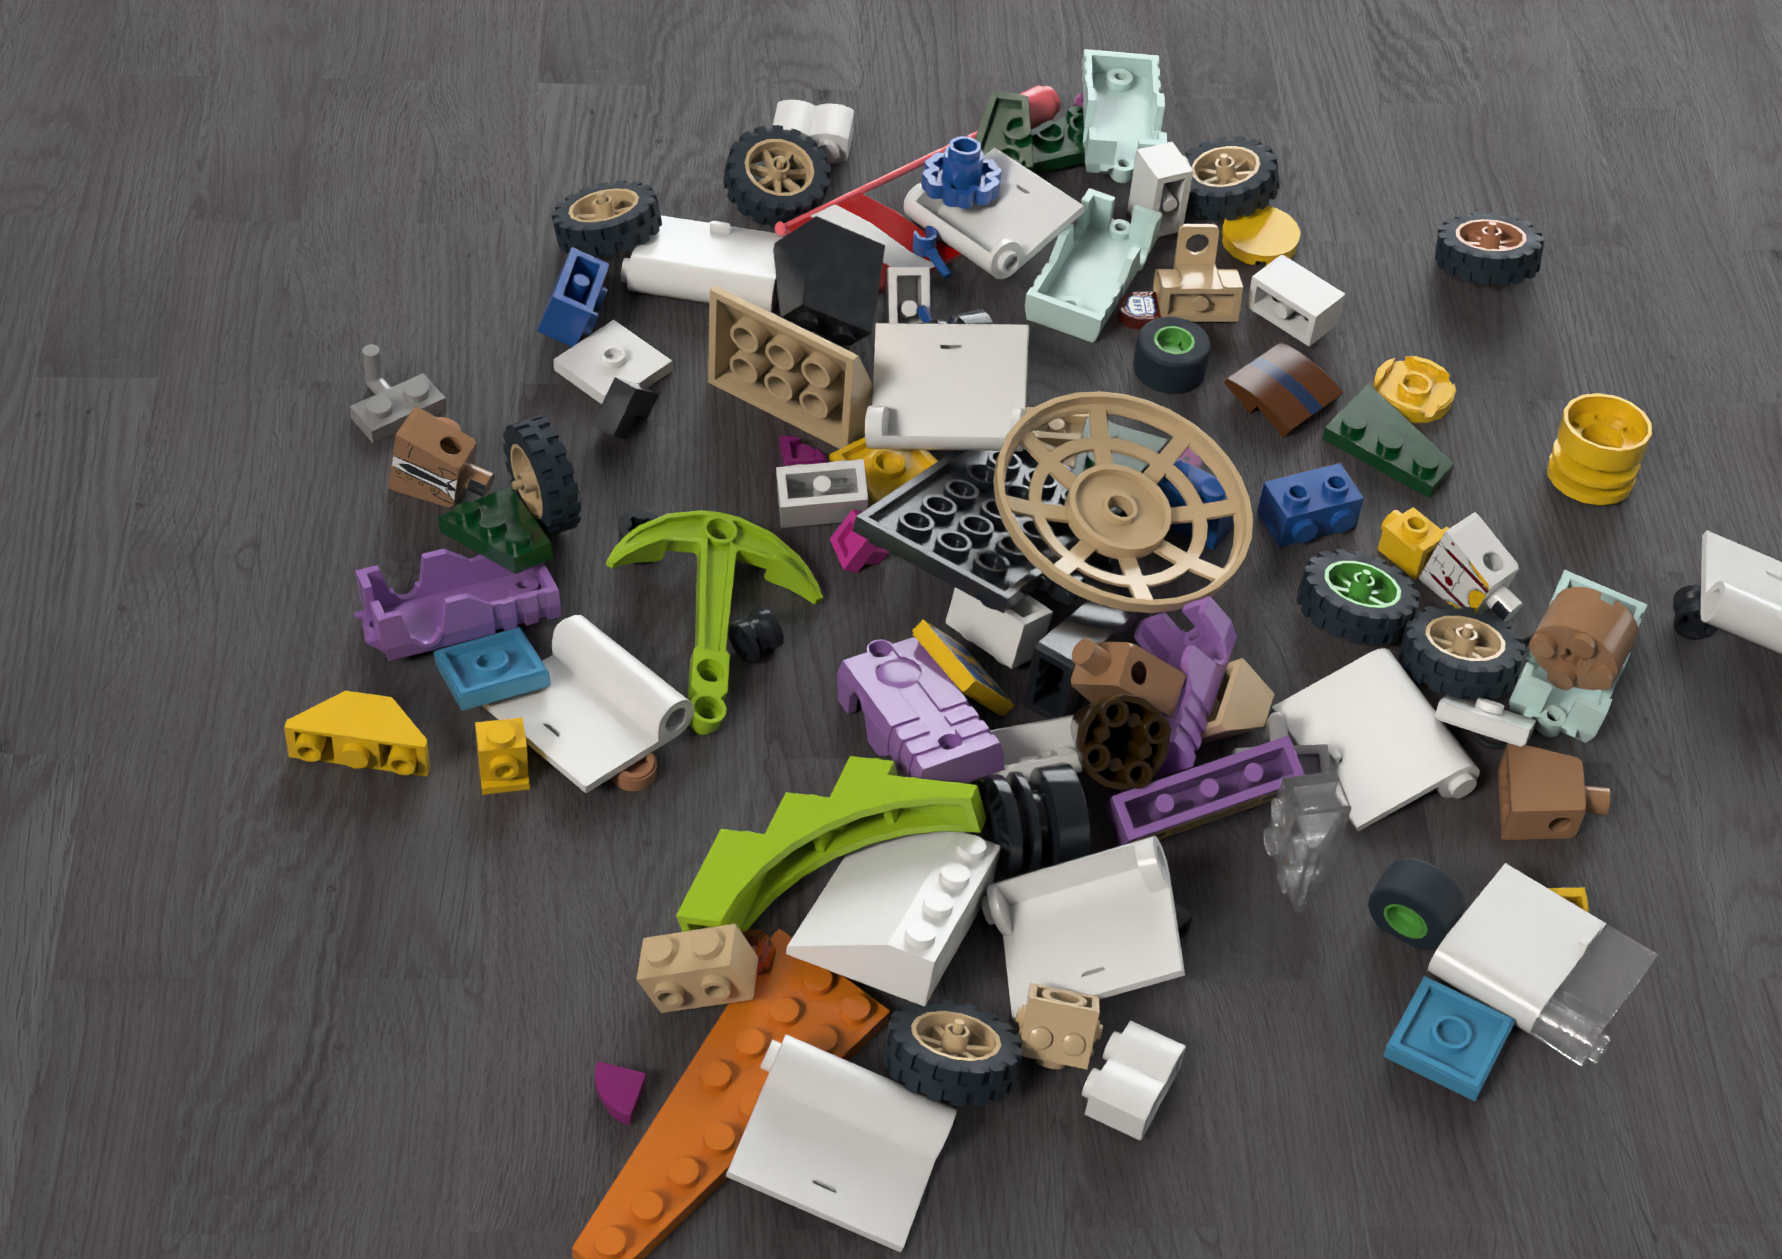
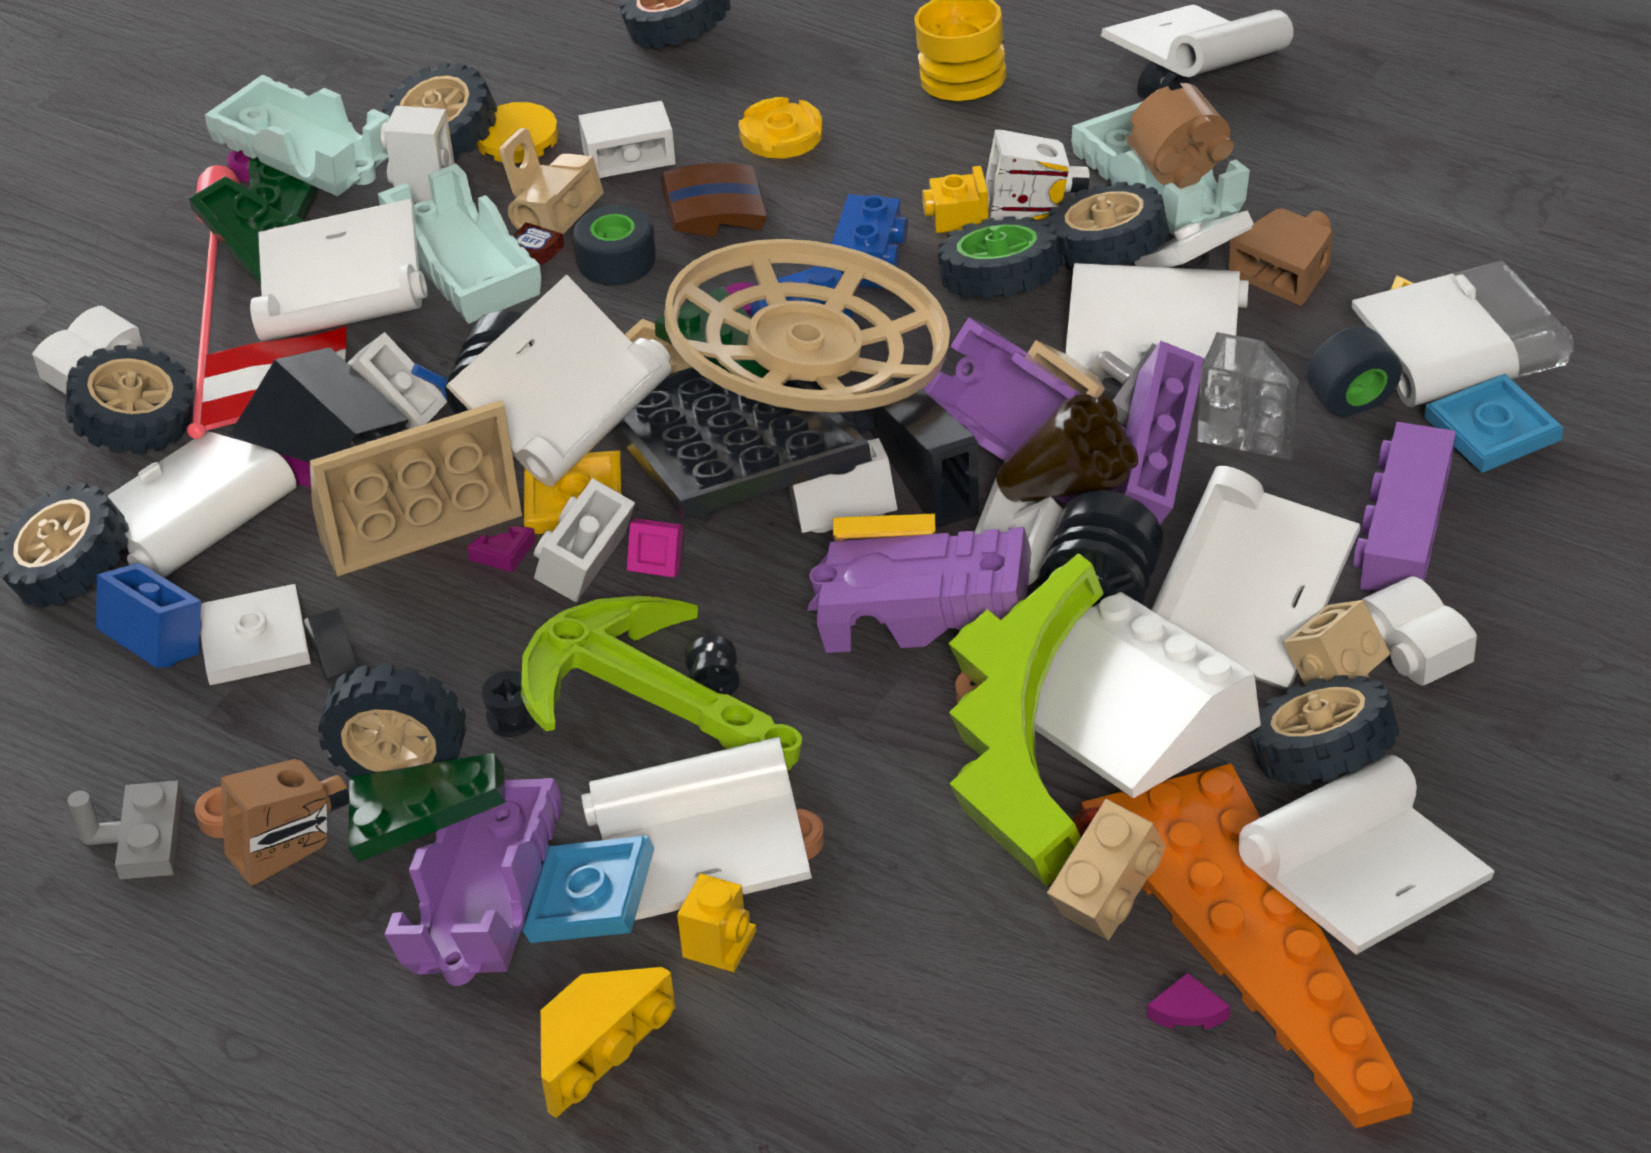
camera: 50 degrees left, 5 degrees down
(927, 248) = (318, 338): blue hand -> none
(961, 175) = (280, 263): blue plant -> none
(1125, 668) = (1011, 412): medium nougat torso -> none
(1280, 1014) = (1407, 506): none -> medium lavender brick
(1388, 442) = (828, 169): wing -> none

